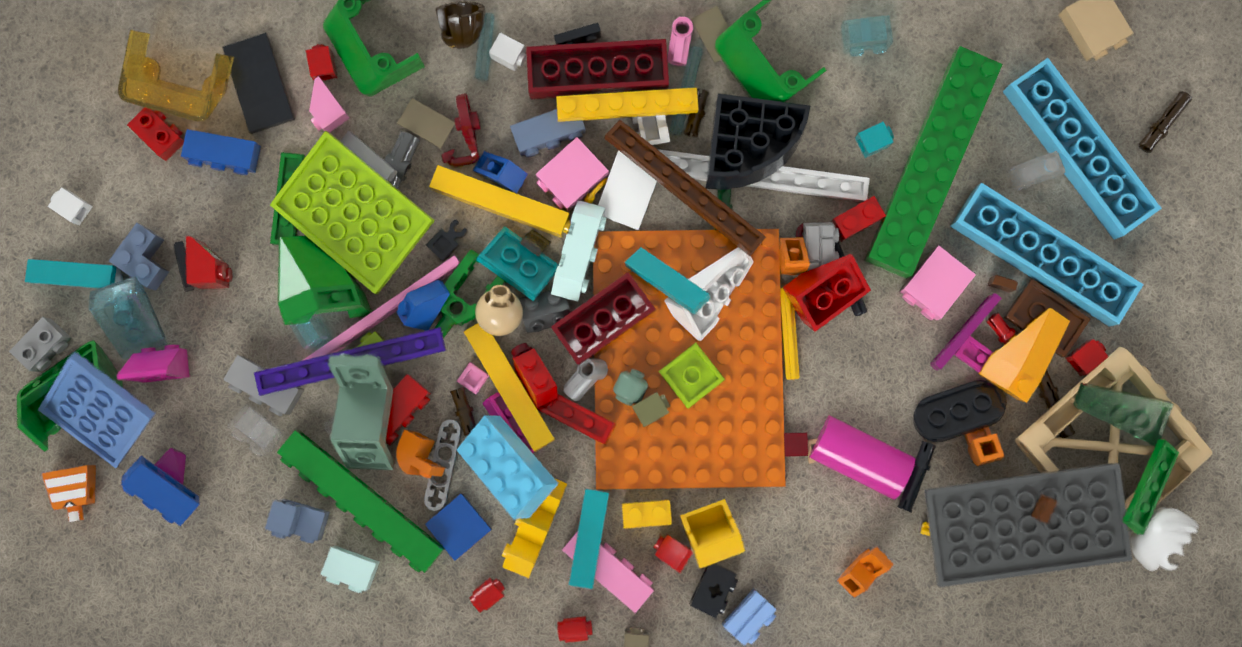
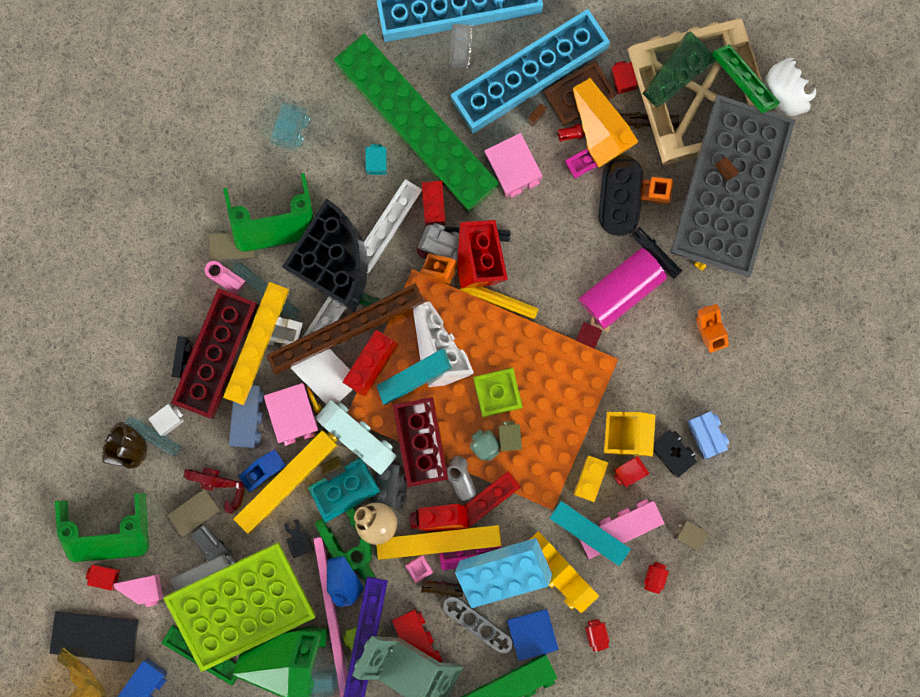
camera: 60 degrees left, 0 degrees up
(413, 455) = (459, 645): orange brick -> none
(660, 229) = (370, 363): none -> red brick
(694, 119) = (293, 294): dark brown pin -> none
(965, 331) = (561, 162): magenta tile -> none

